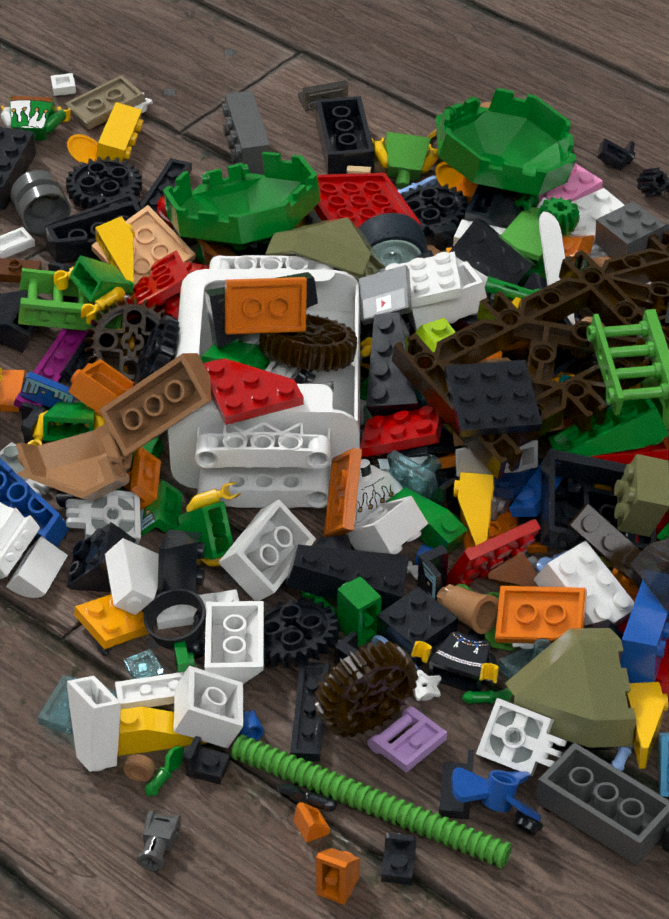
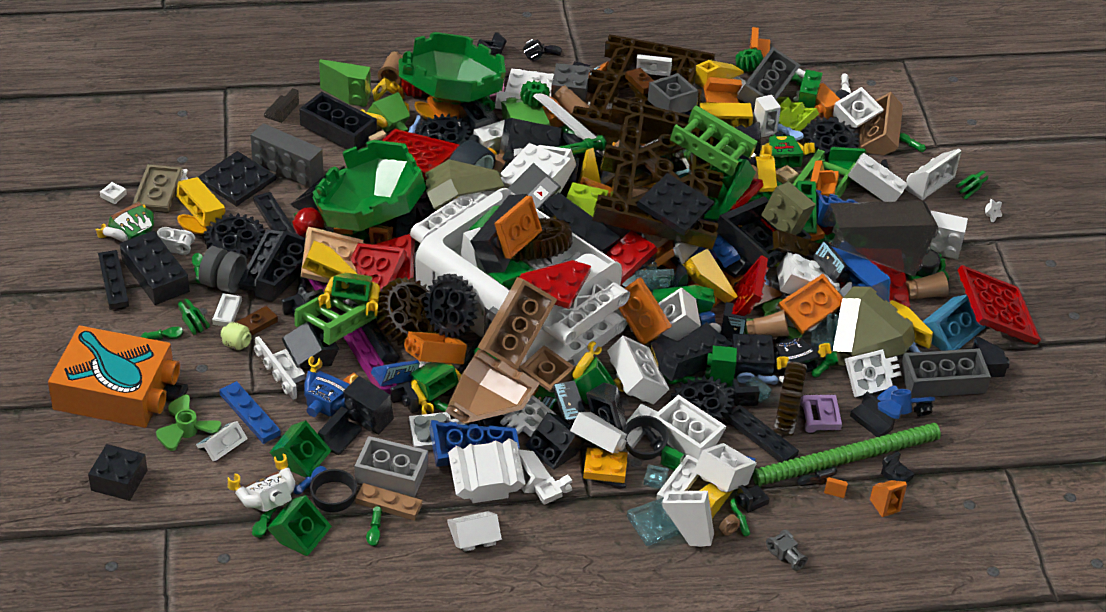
camera: 50 degrees left, 0 degrees up
(29, 600) = (551, 490): none -> white plate
(50, 154) = (175, 240): none -> white piece
(154, 525) = (568, 400): none -> panel
(169, 485) = (547, 368): none -> medium nougat slope
(187, 135) = (237, 178): none -> black plate
(408, 104) = (346, 81): none -> bright green slope
(597, 243) = (568, 99): none -> medium nougat plant
(622, 590) = (831, 263): none -> black panel

